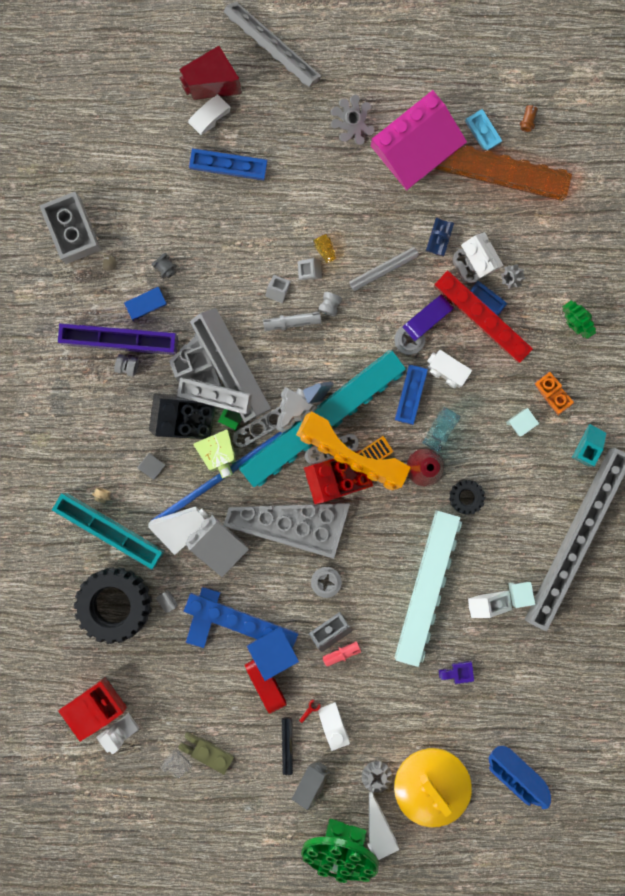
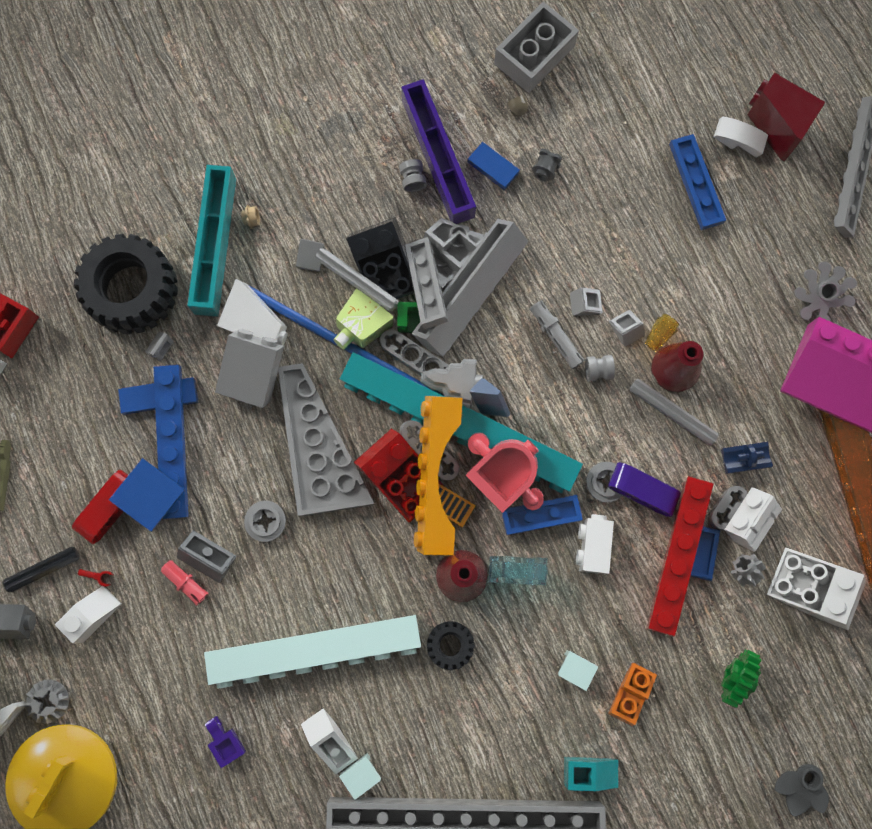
camera: 60 degrees right, 10 degrees down
(187, 442) = (356, 279): none -> light grey axle
(354, 250) = (678, 366): none -> dark red cone
(372, 405) = (505, 471): none -> coral piece
(545, 237) = (817, 587): none -> white slope

